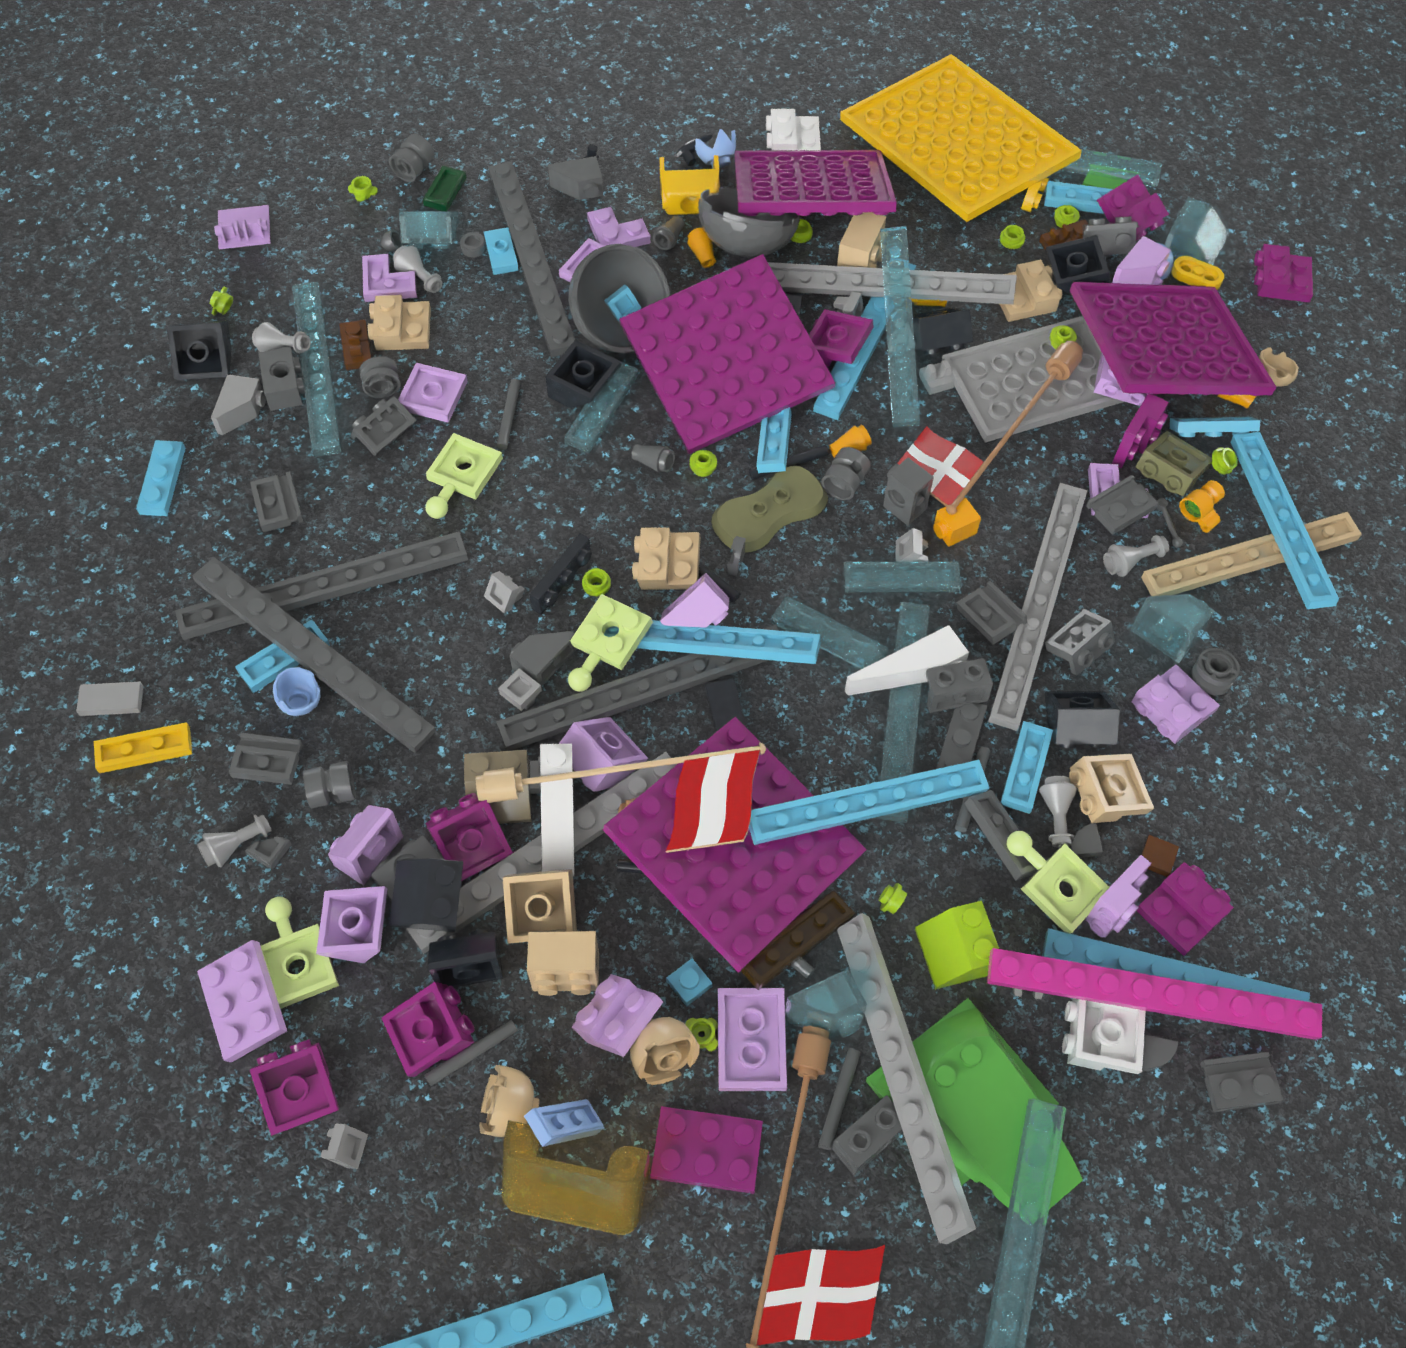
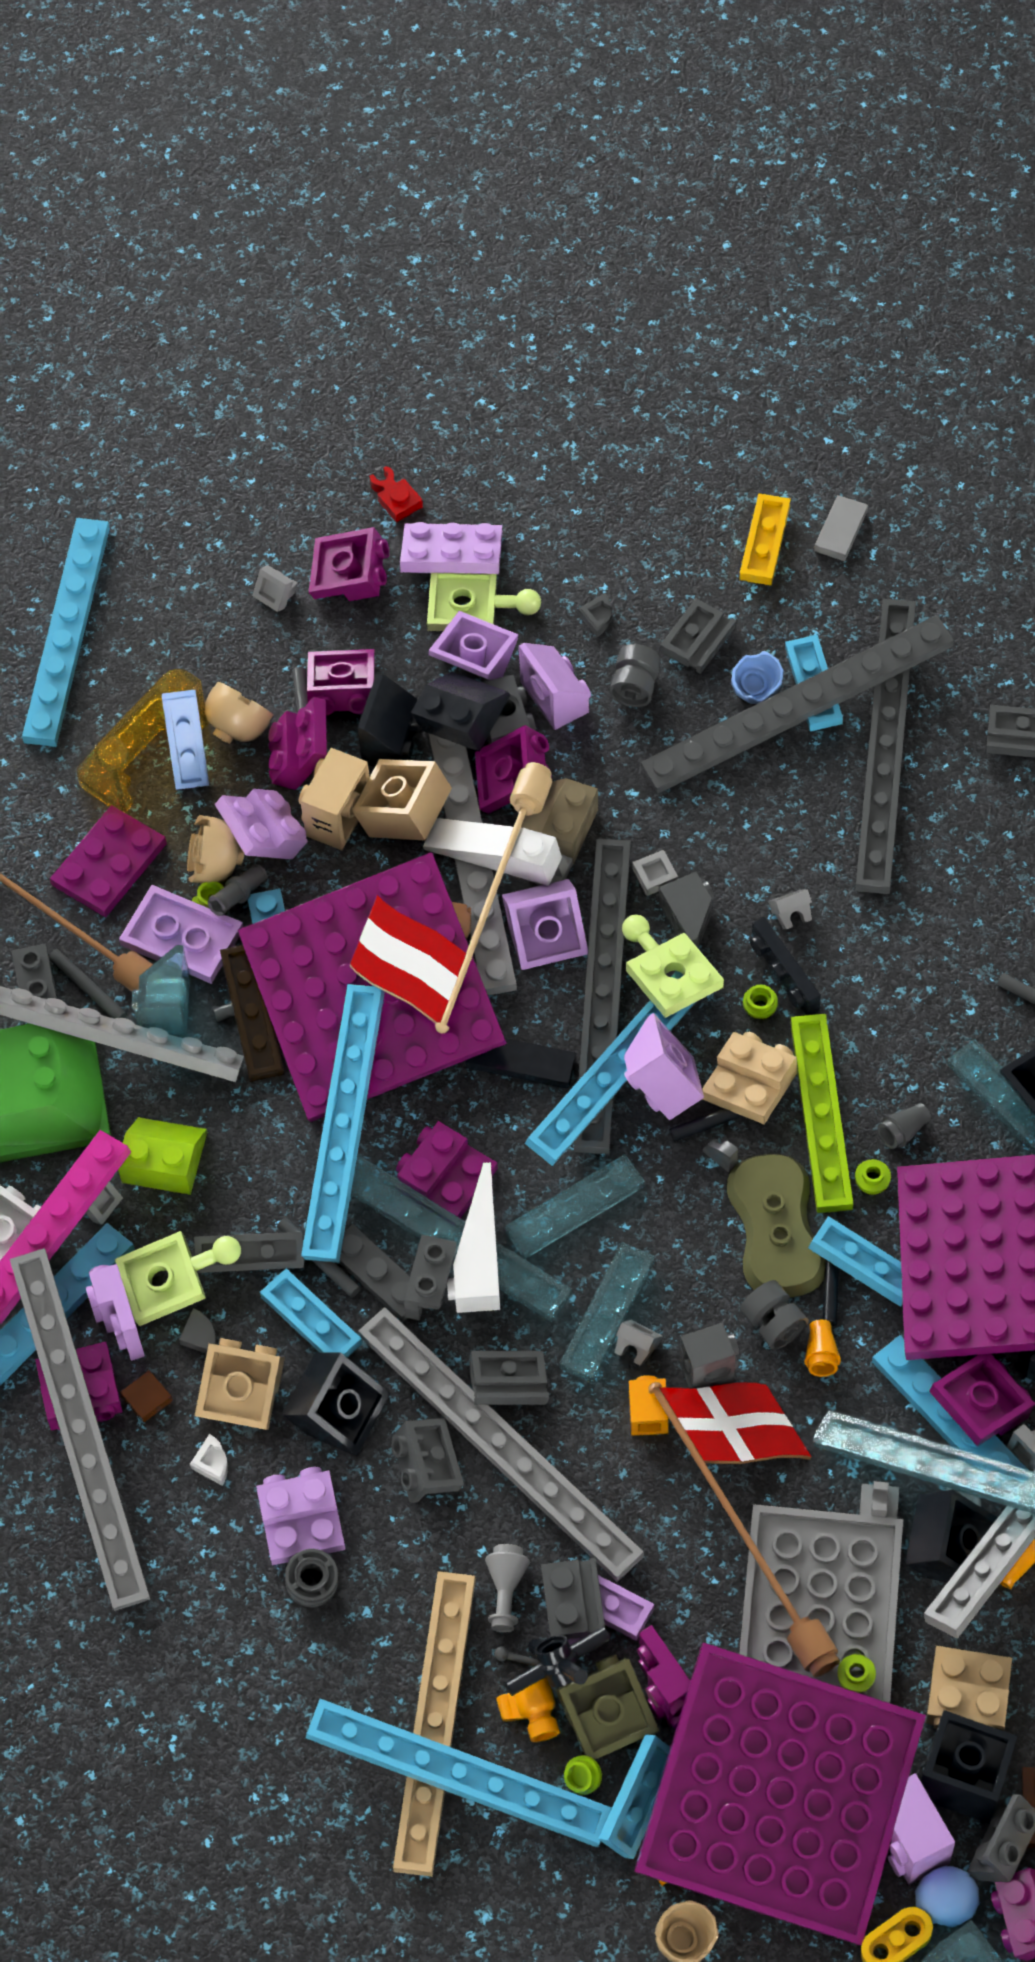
camera: 120 degrees right, 0 degrees up
(191, 1086) = (396, 498): none -> red plate
(220, 846) = (618, 569): light grey piece -> none
(466, 482) = (981, 906): yellowish green plate -> none
(519, 1023) = (297, 744): none -> magenta plate
(669, 508) = (821, 1113): none -> lime plate
(691, 1007) = (237, 889): none -> dark grey pin
(853, 731) = (444, 1168): none -> magenta plate
(892, 898) = (243, 1115): lime plate -> none
(1058, 796) = (258, 1326): light grey piece -> none
(1172, 623) = (383, 1553): clear light blue slope -> none
(1174, 785) = (211, 1461): none -> white tile
(1181, 476) = (557, 1661): none -> black bar
(1225, 876) = (79, 1430): none -> light grey plate

